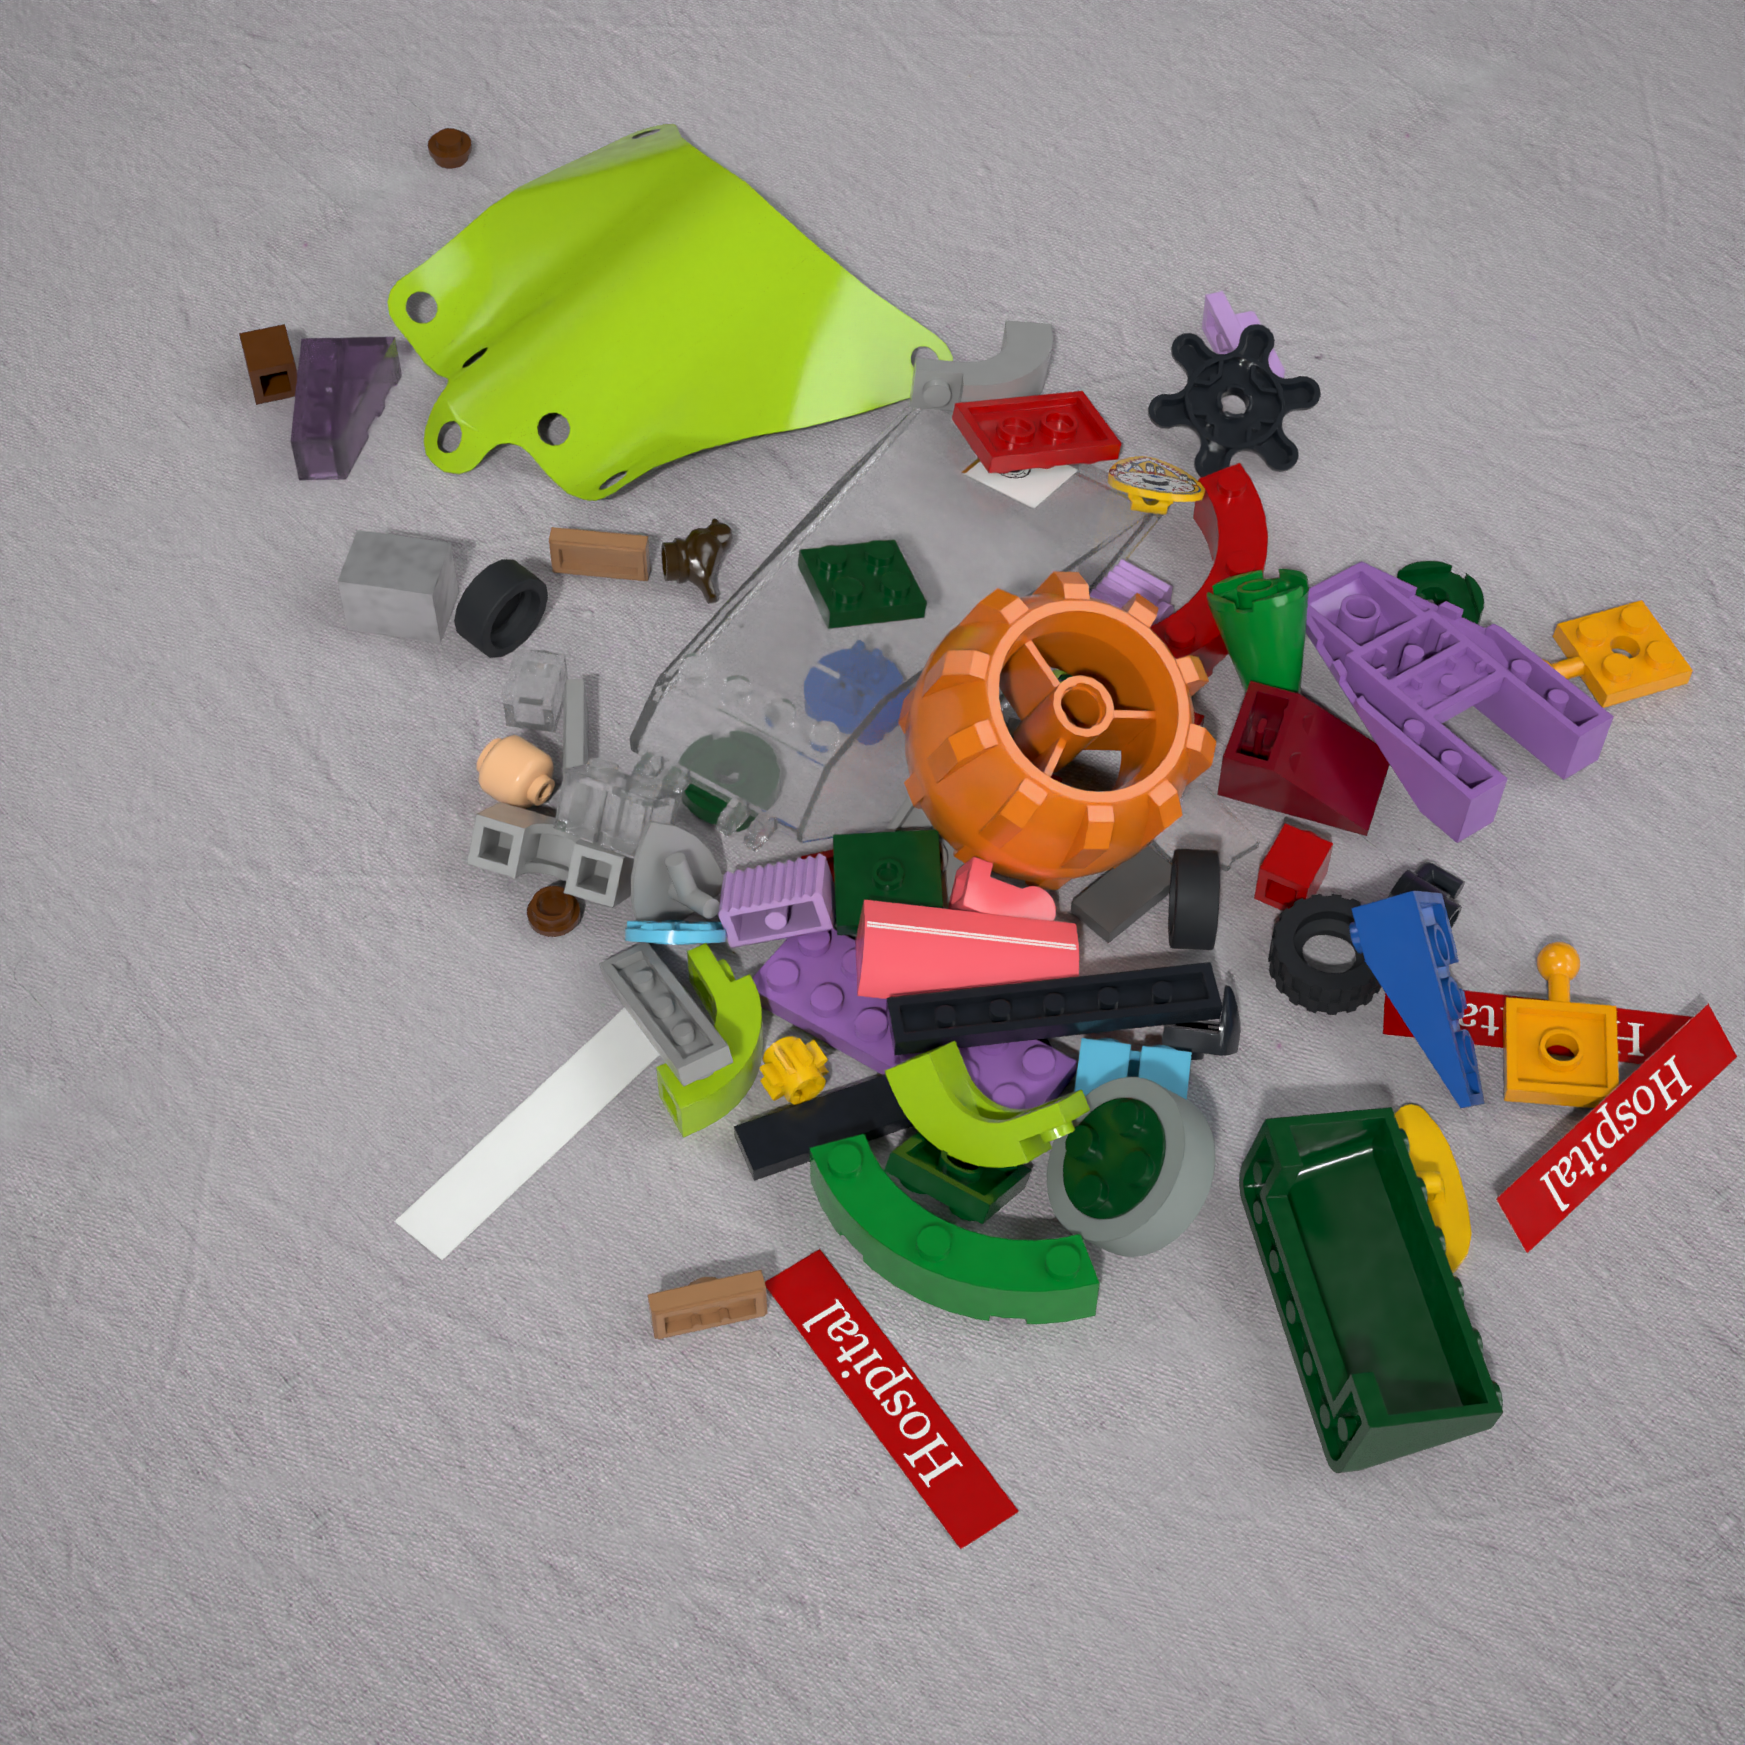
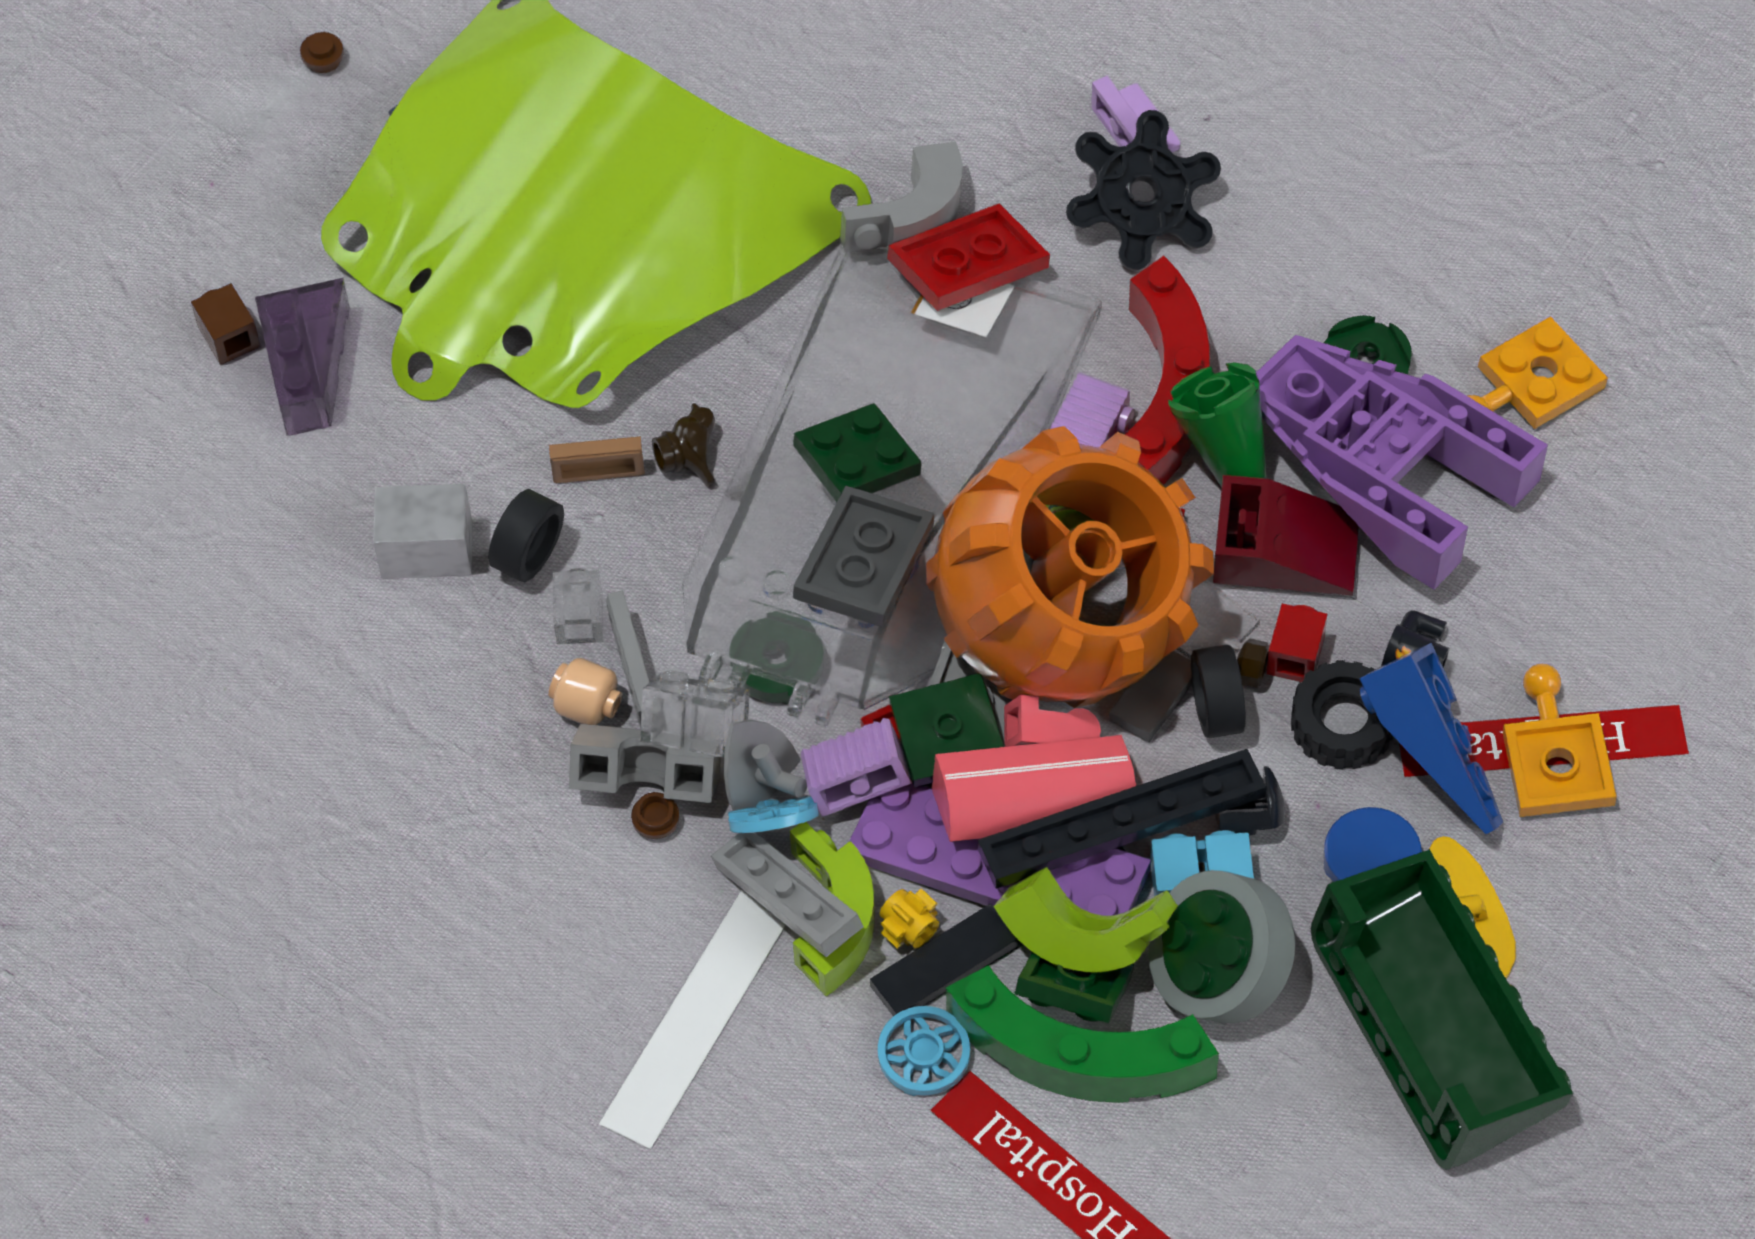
camera: 10 degrees left, 5 degrees up
(707, 1304) = (891, 1139): medium nougat plate -> none
(772, 1216) = (923, 1050): none -> medium azure wheel
(834, 677) = (863, 556): none -> dark grey plate
(1155, 480) = (1090, 289): shield -> none
(1239, 881) = (1253, 662): none -> dark brown tile
(1325, 1086) = (1366, 841): none -> blue tile
(1616, 1128) = (1619, 822): red sticker -> none

